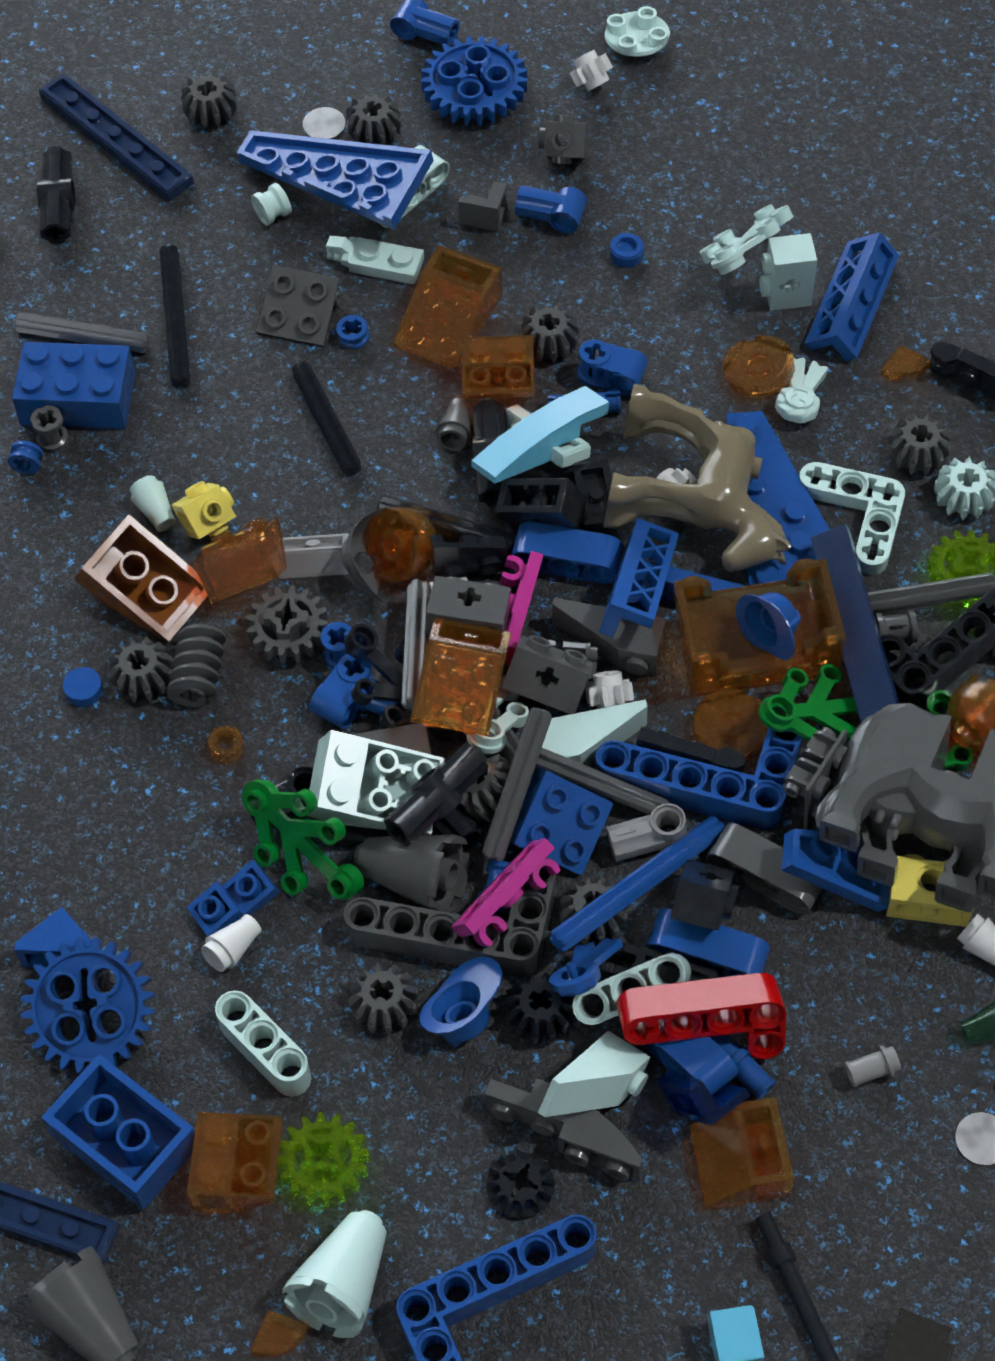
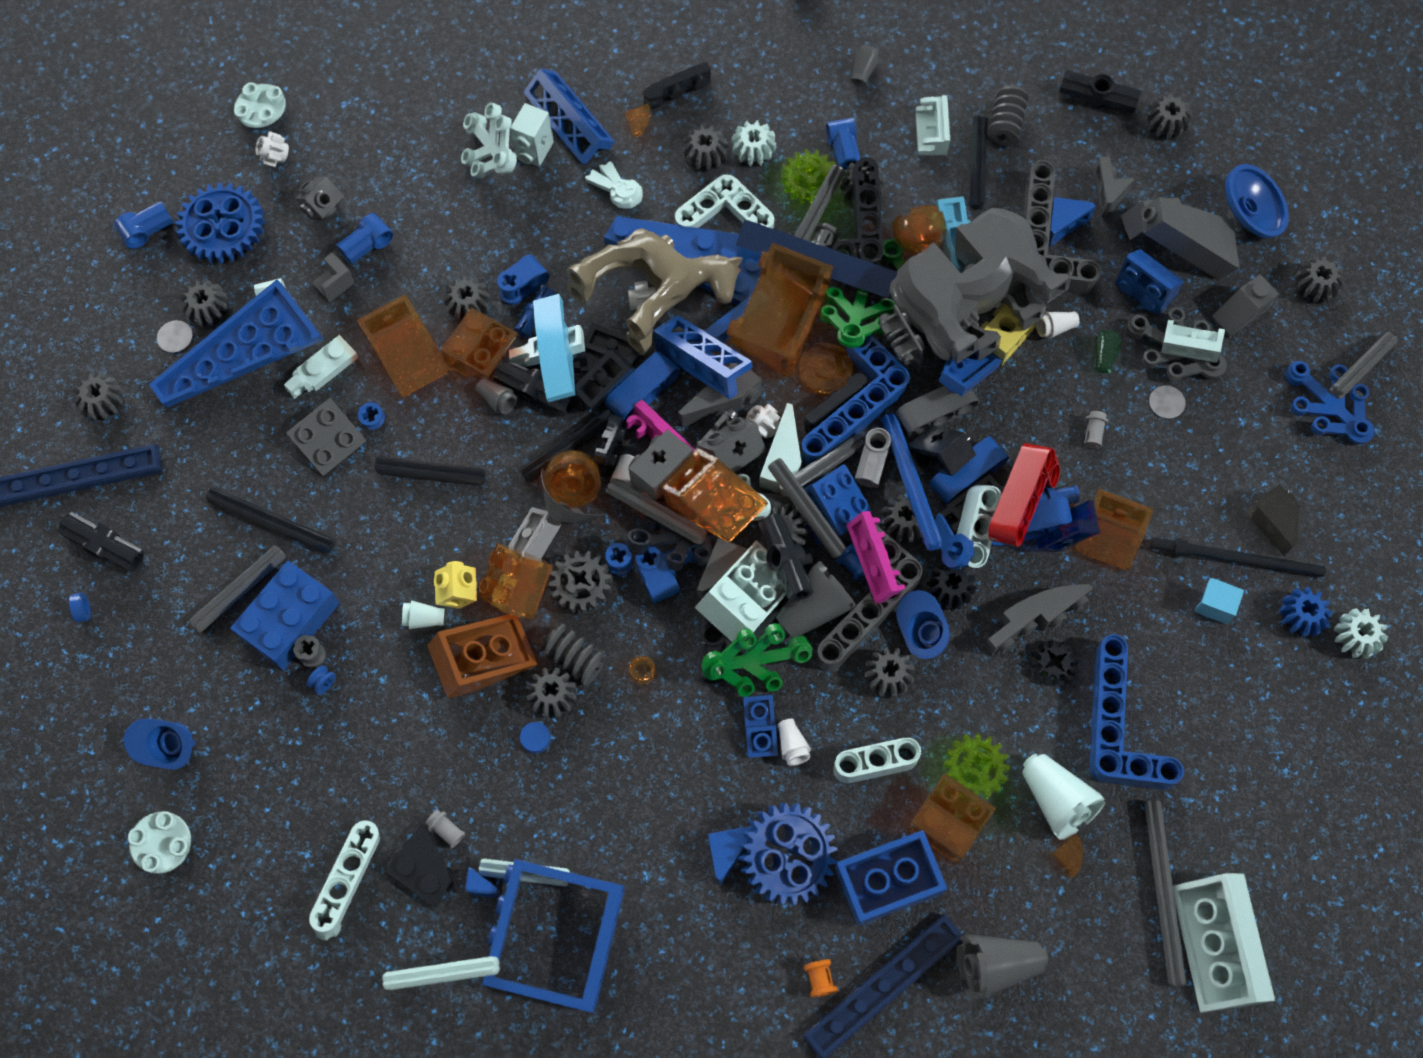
camera: 60 degrees left, 10 degrees up
(271, 204) = (225, 406): light aqua wheel -> none
(597, 1078) = (1021, 574): light aqua slope -> none
(626, 250) = (431, 217): blue tile -> none
(759, 366) = (581, 197): clear orange tile -> none
(769, 623) = (789, 301): blue piece -> none

